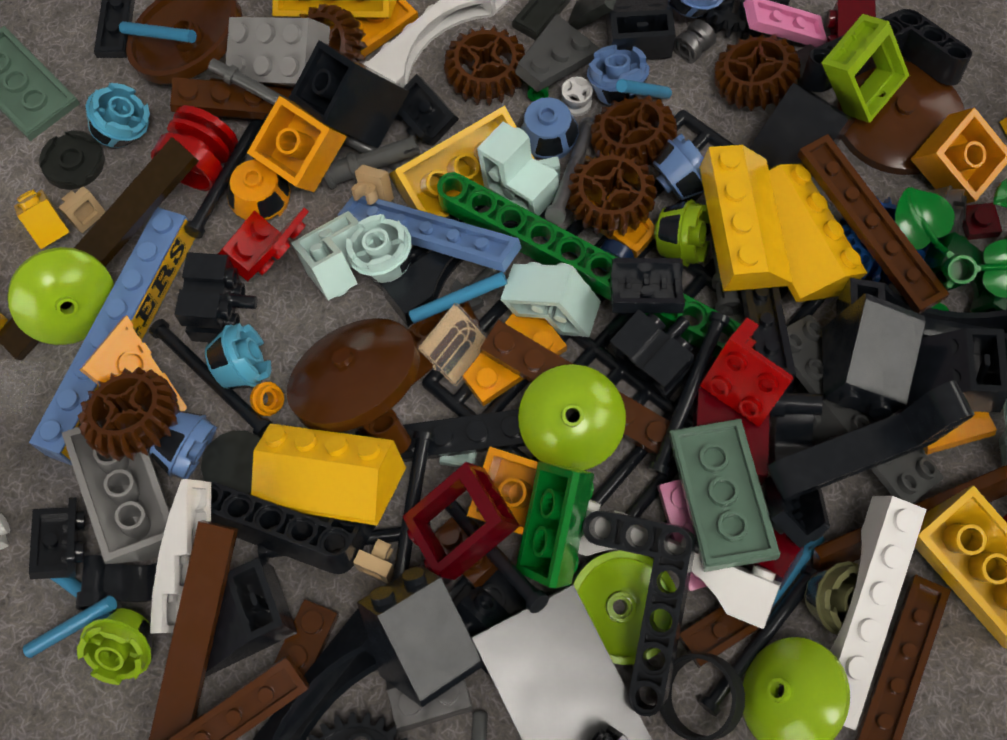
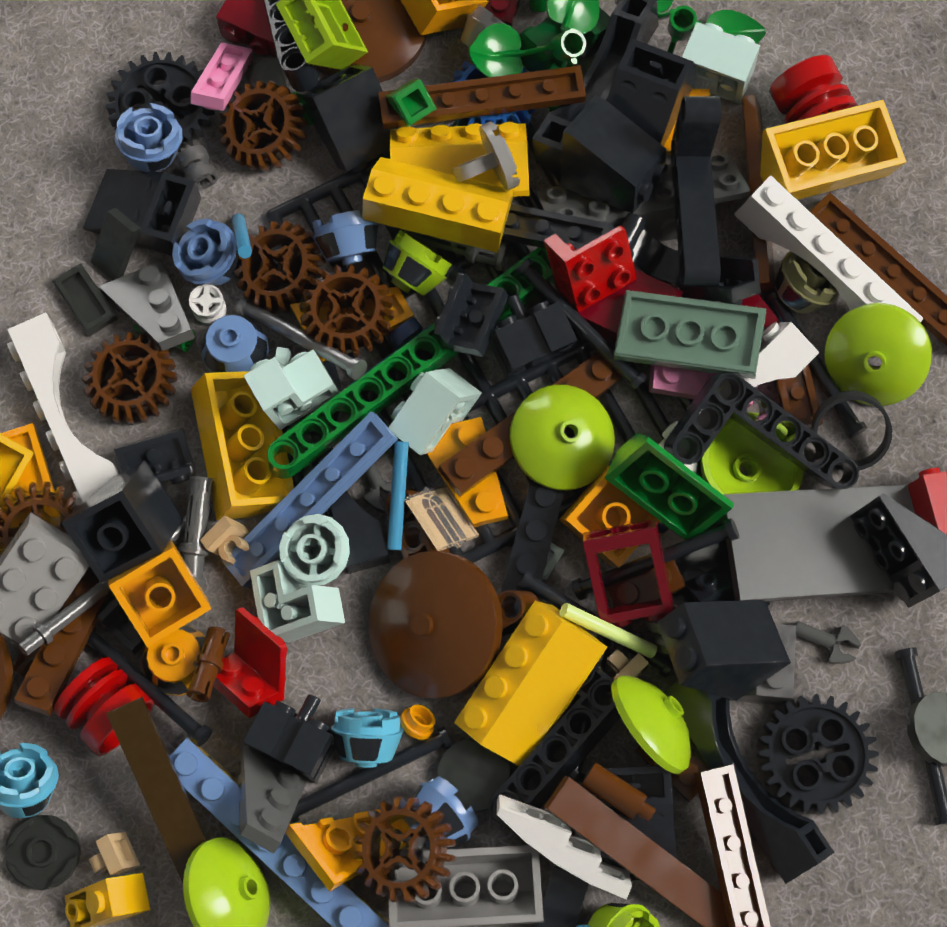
camera: 70 degrees left, 5 degrees up
(142, 295) = (267, 798): none -> dark grey wing
(238, 583) = (617, 793): none -> reddish brown cylinder
(251, 206) = (208, 664): none -> reddish brown pin
(317, 594) = (653, 722): none -> lime dish
(397, 522) = (608, 630): none -> yellowish green bar
(810, 247) = (496, 157): none -> light grey tile
(831, 162) = (411, 101): none -> green slope

